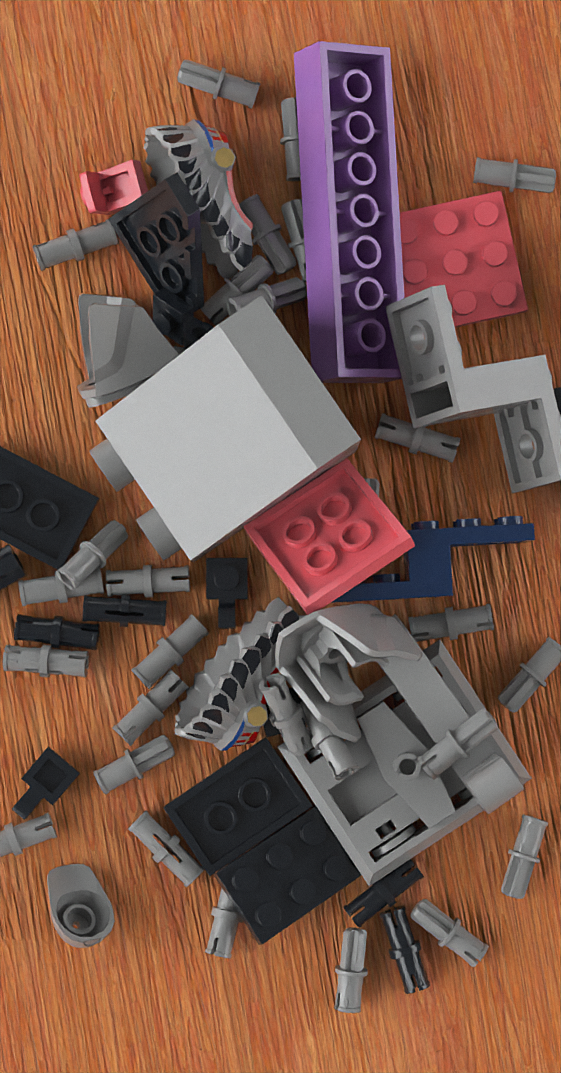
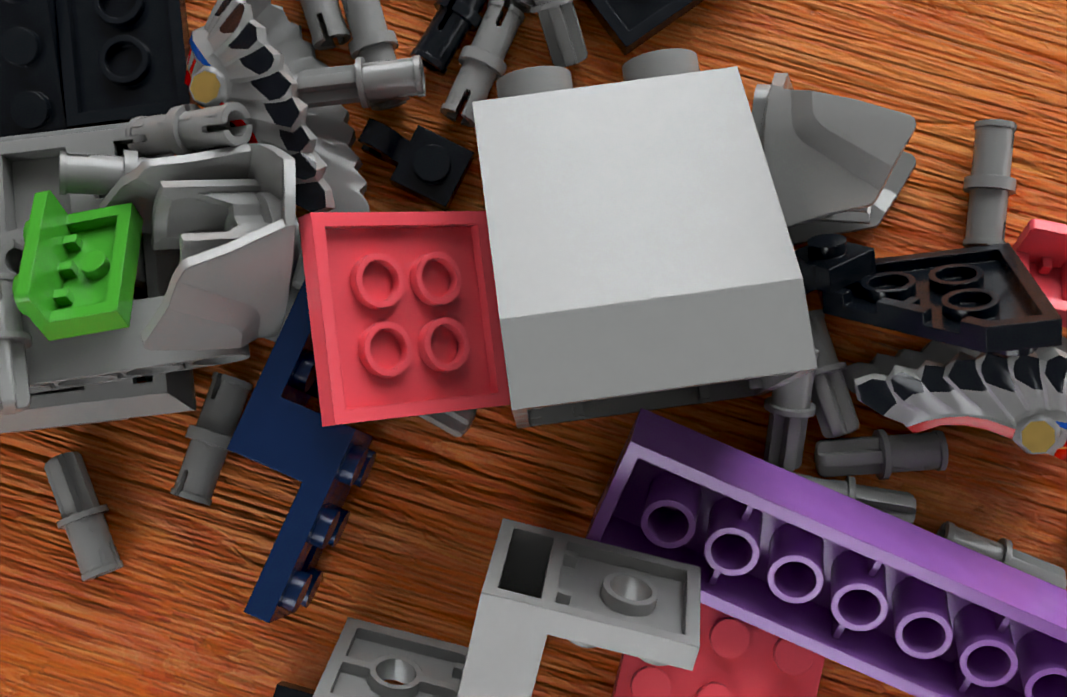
camera: 115 degrees right, 5 degrees down
(201, 640) = (362, 82): none -> light grey axle
(395, 723) = (78, 268): none -> bright green bracket
(418, 438) = (482, 529): light grey pin -> none

